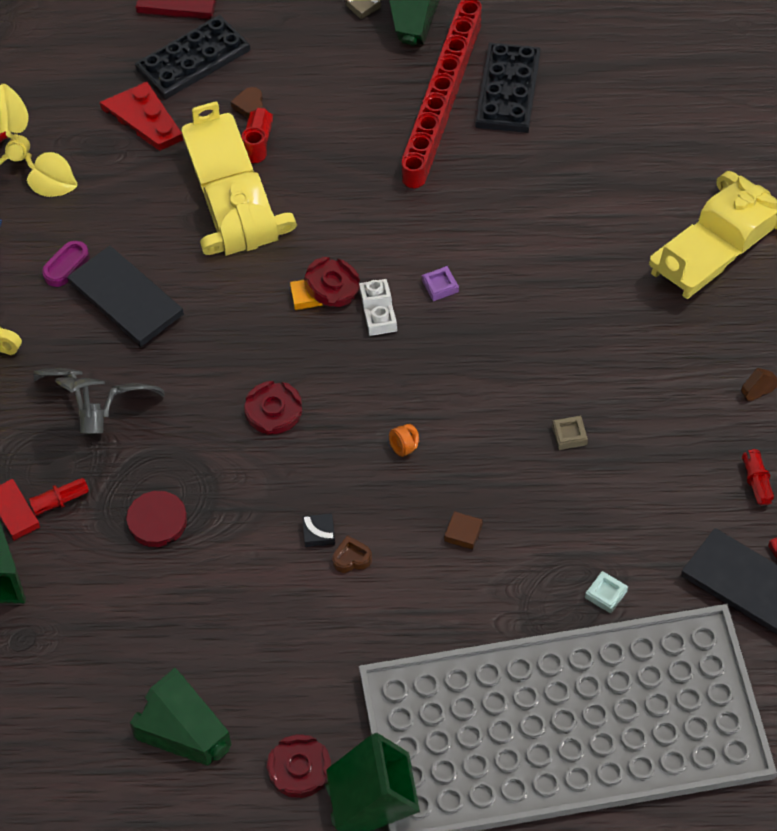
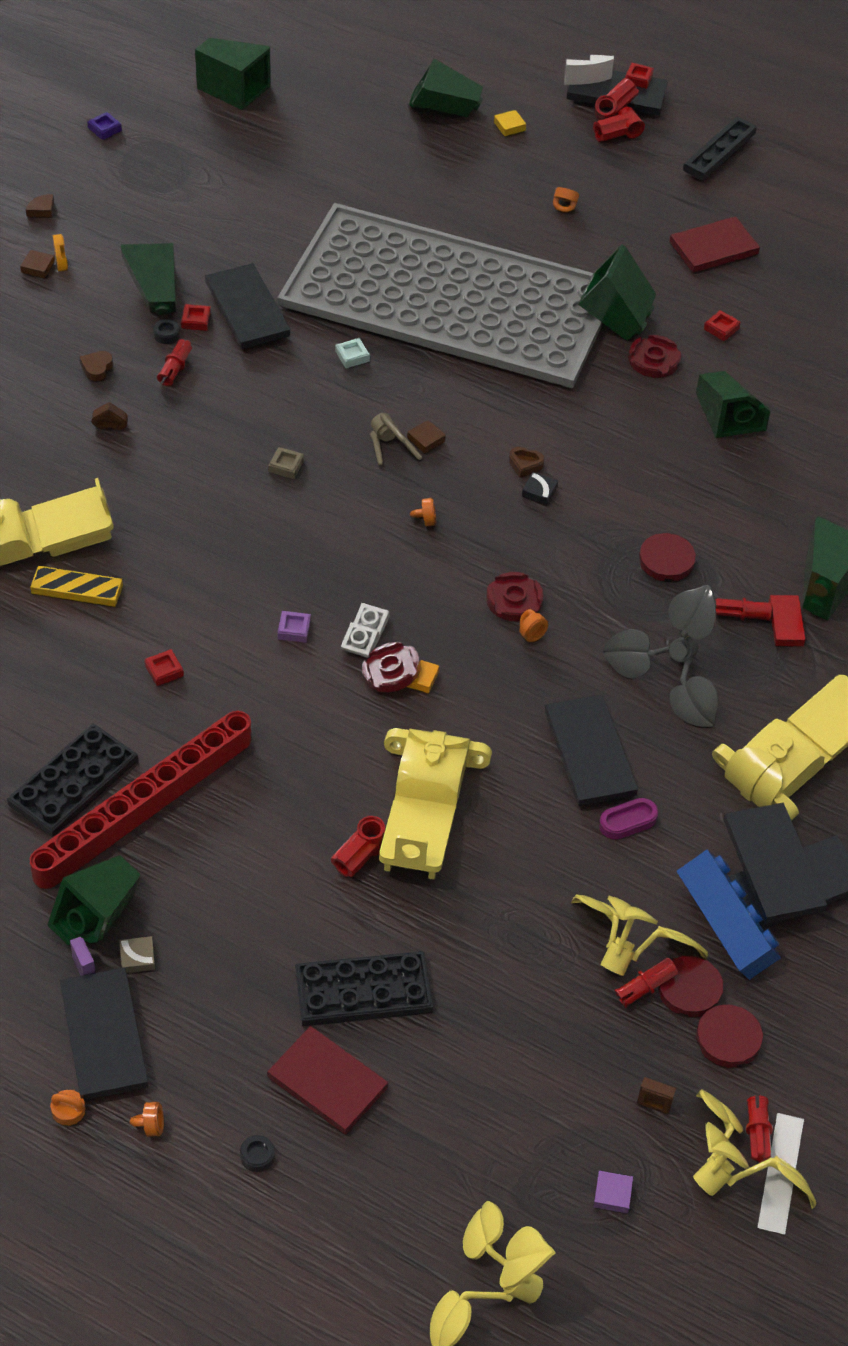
camera: 155 degrees left, 5 degrees down
(145, 114) = (459, 943): red wing -> none
(236, 376) = (532, 625): none -> orange tile
(247, 101) = (341, 897): reddish brown tile -> none
(505, 509) = (386, 430): none -> dark tan plant
(515, 198) = (164, 667): none -> red tile
(642, 225) = (76, 586): none -> yellow tile

